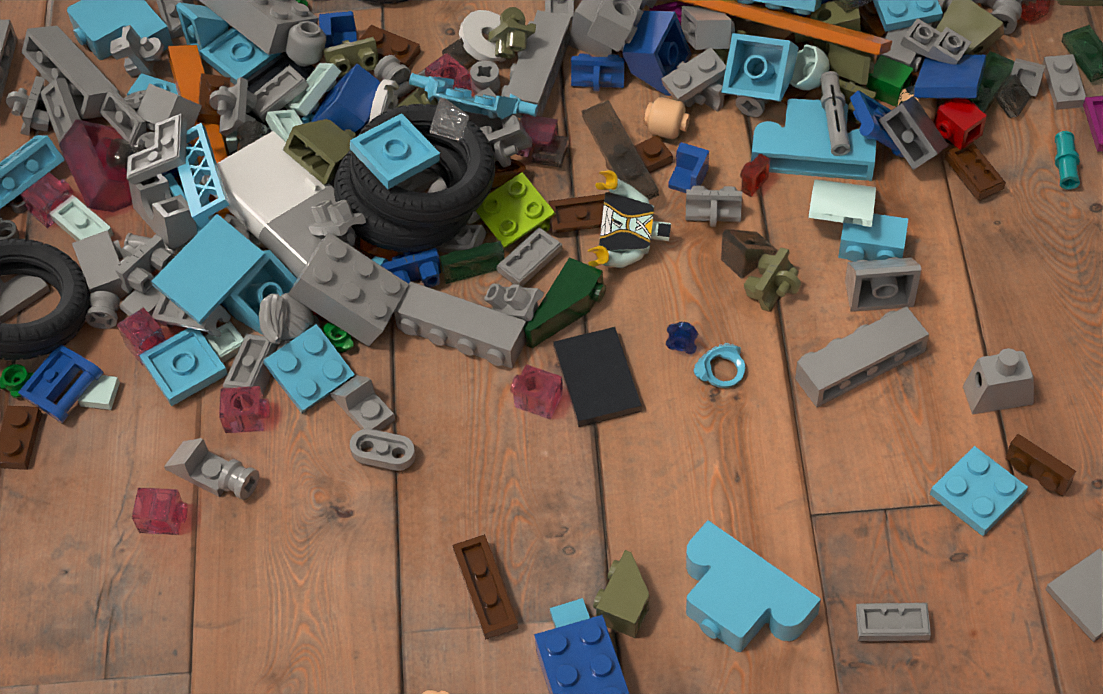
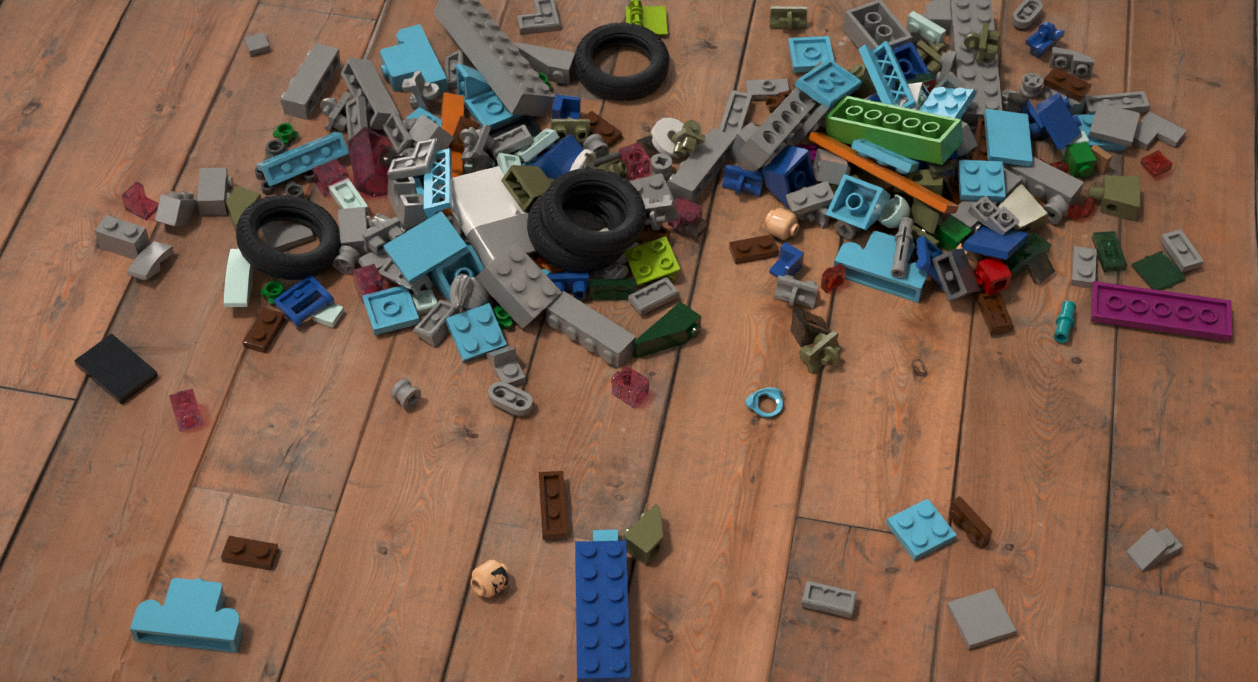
camera: 10 degrees right, 5 degrees down
(159, 511) = (345, 401): clear pink brick -> none
(197, 465) = (380, 378): light grey slope -> none
(234, 401) = (422, 348): clear pink brick -> none
(305, 43) = (540, 112): light grey head -> none
(336, 219) = (523, 234): light grey hips -> none
(394, 151) = (575, 196): medium azure plate -> none
(449, 120) = (620, 185): clear slope -> none
(487, 105) = (628, 169): medium azure plate -> none
(514, 300) = (632, 320): light grey hips -> none
(577, 213) = (699, 274): reddish brown plate -> none
(597, 376) = (675, 387): black tile -> none
(618, 148) = (740, 240): clear smoke tile -> none
(625, 225) = (727, 289): torso -> none
(682, 337) = (743, 375): clear blue plate -> none
(742, 592) = (730, 553): medium azure brick -> none
(842, 202) = (888, 310): light aqua slope -> none
(861, 356) = (867, 418): light grey brick -> none
(878, 242) = (903, 341): medium azure brick -> none
(882, 283) = (898, 373): light grey slope -> none
(1000, 382) = (959, 459): light grey torso -> none
(1029, 74) = (1057, 255): light grey tile -> none

